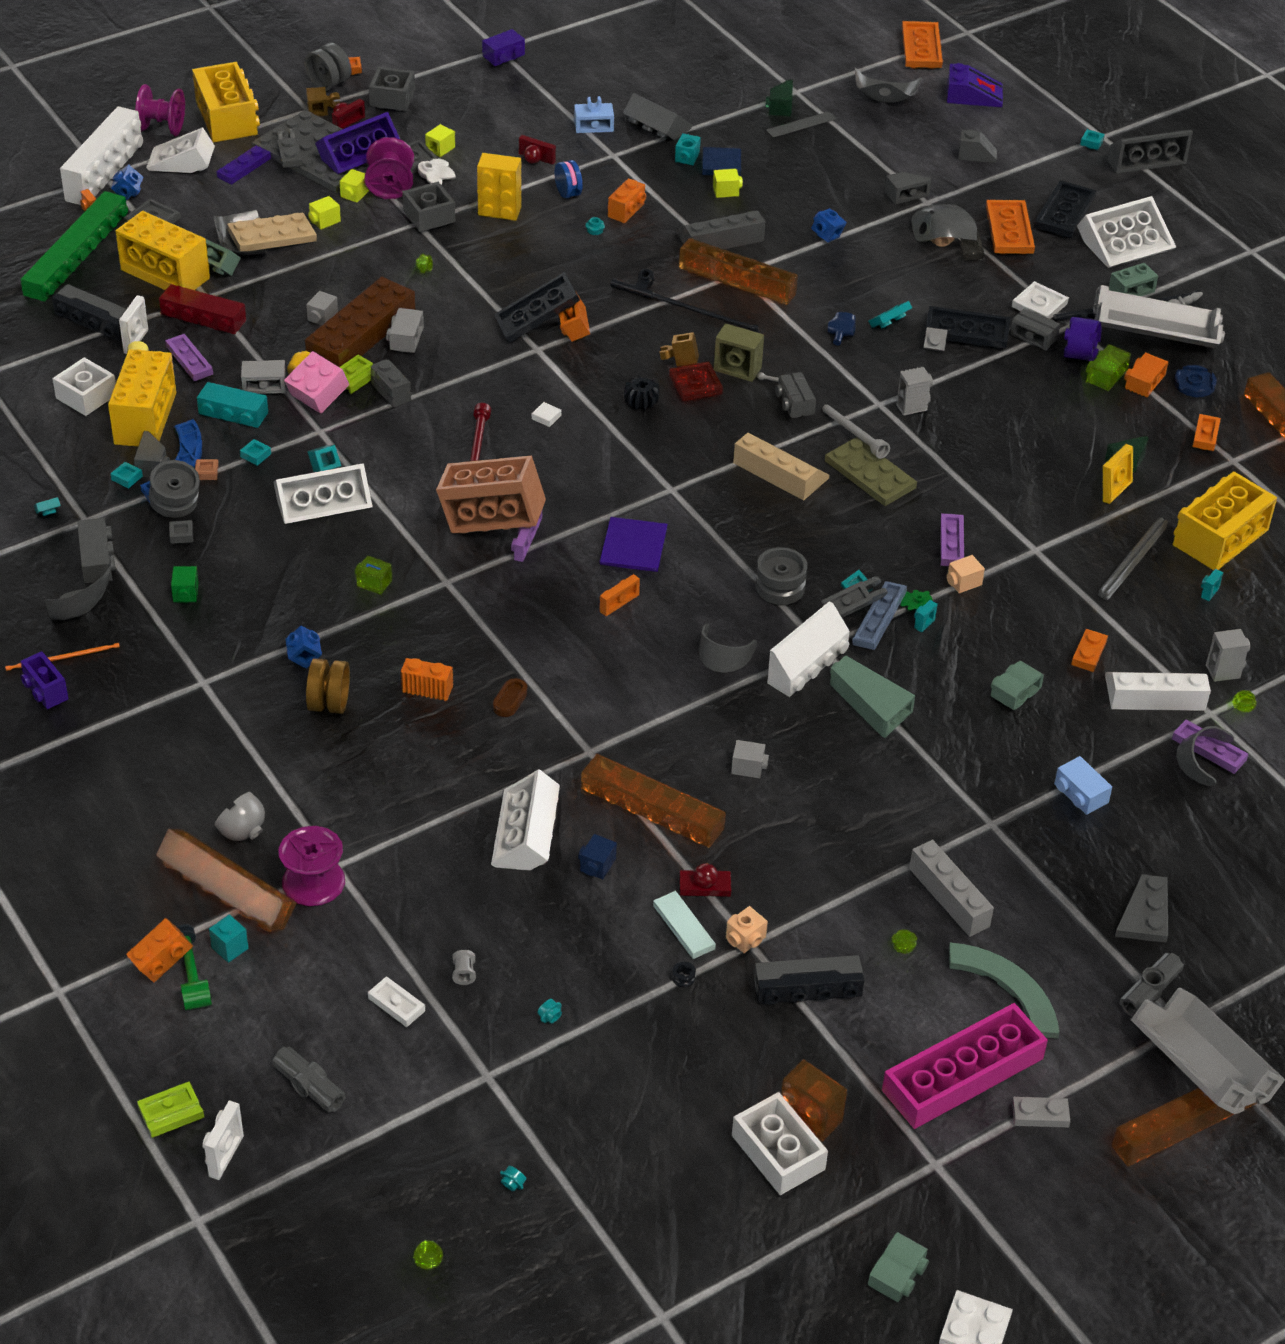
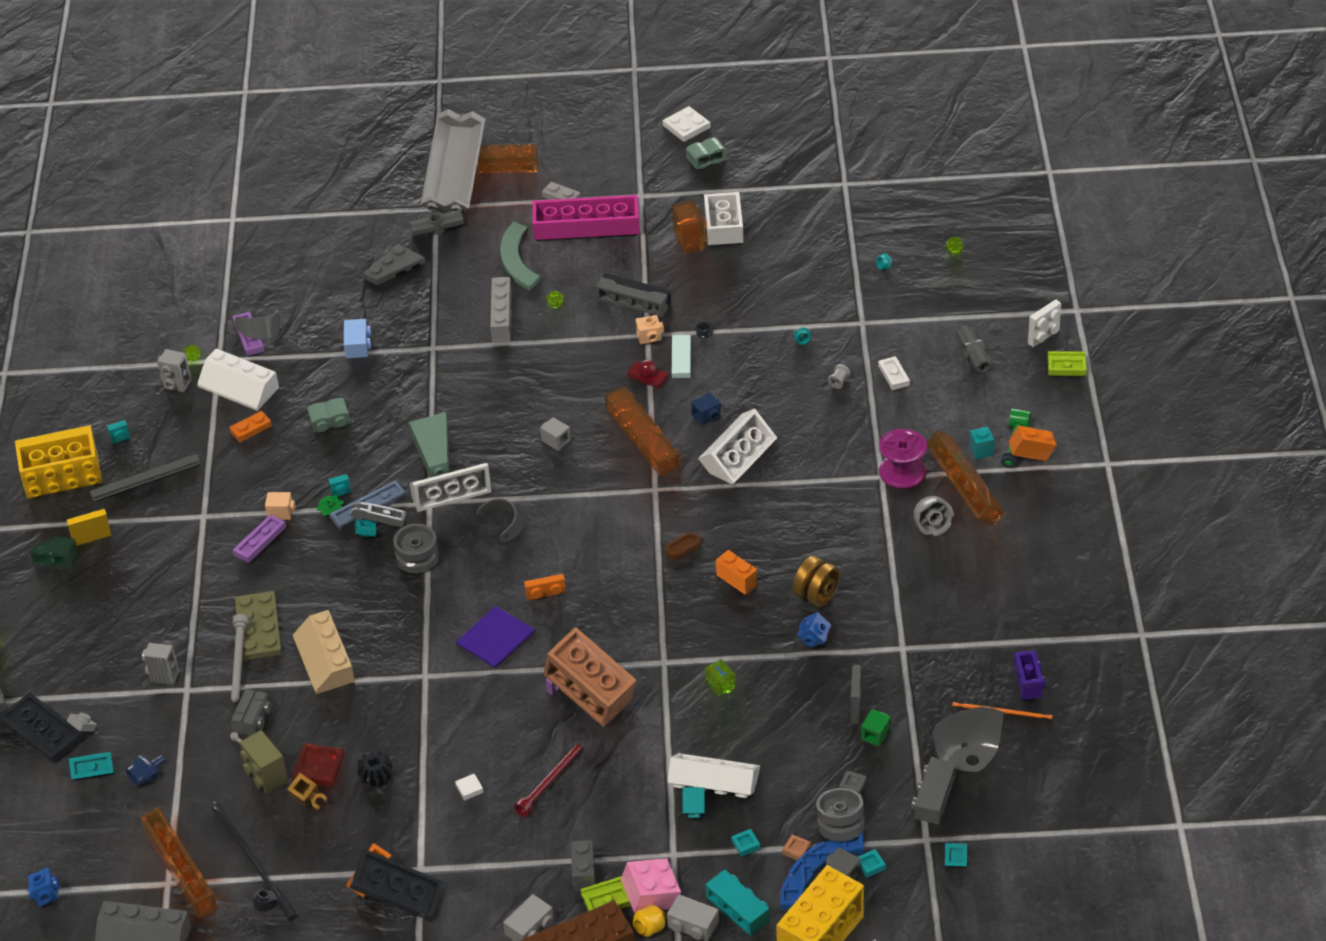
camera: 145 degrees left, 0 degrees up
(219, 592) = (855, 693): none -> dark grey tile

